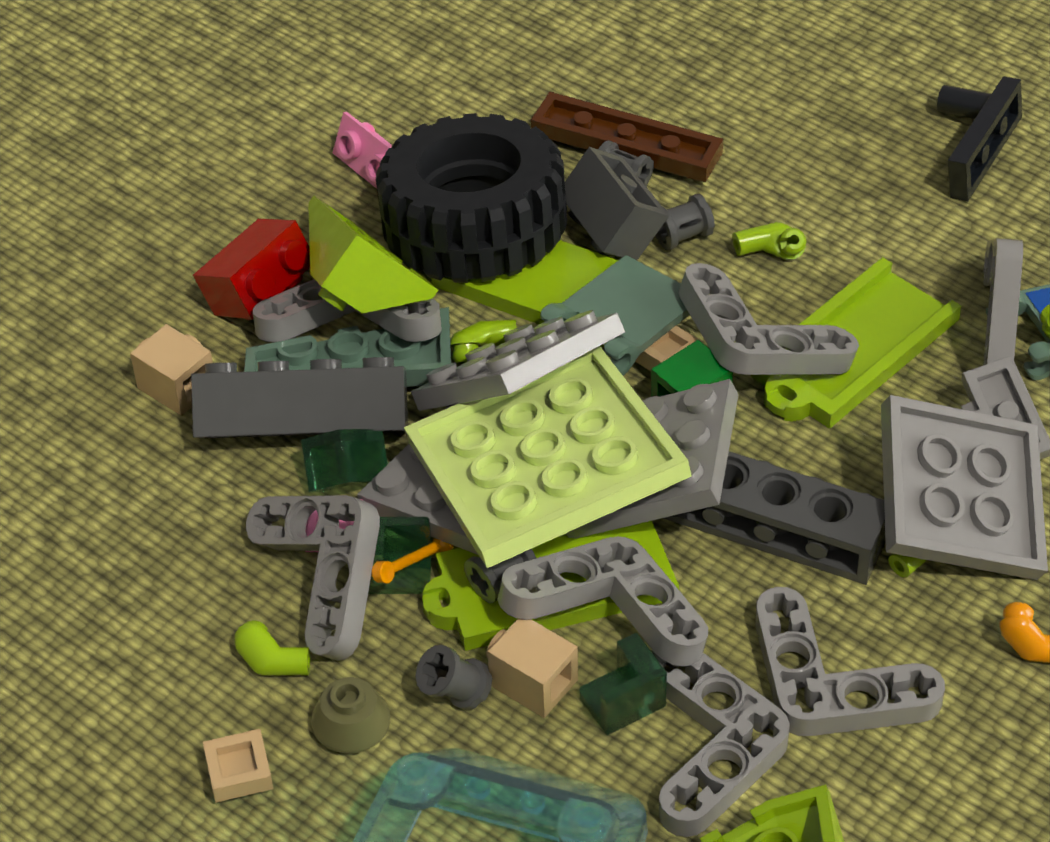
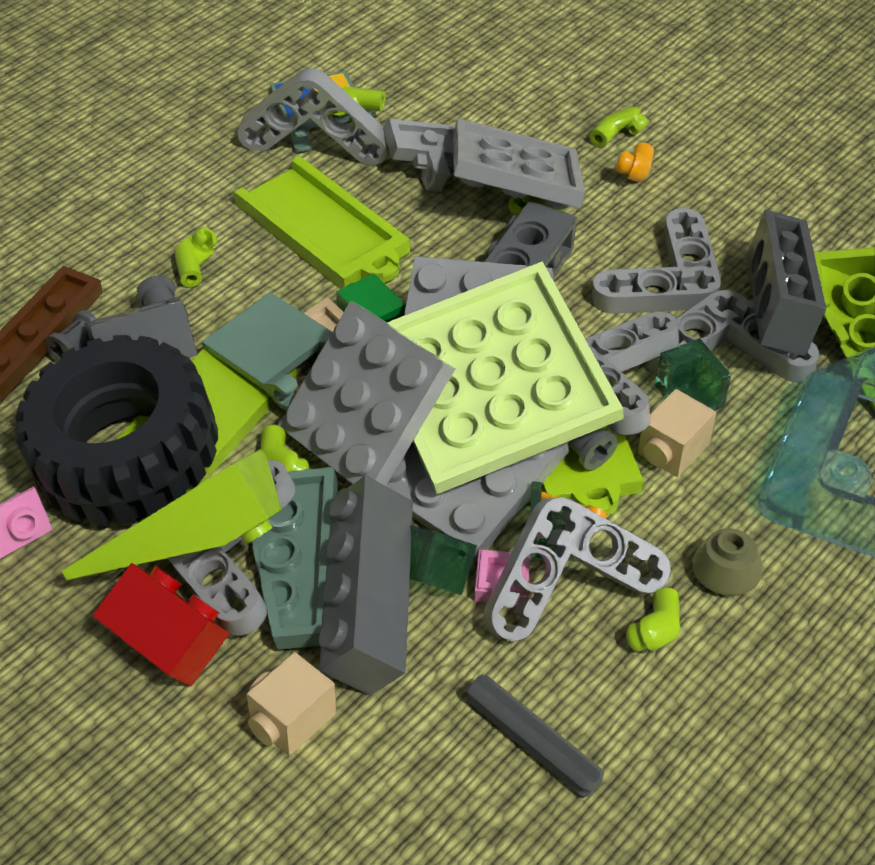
camera: 90 degrees left, 0 degrees up
(139, 553) = (535, 735): none -> dark grey axle
(238, 765) = (791, 642): tan plate -> none
(444, 673) = (711, 474): dark grey bush -> none
(759, 348) = (349, 260): light grey beam -> none
(774, 756) = (785, 284): none -> dark grey brick
(995, 120) = (101, 112): black piece -> none

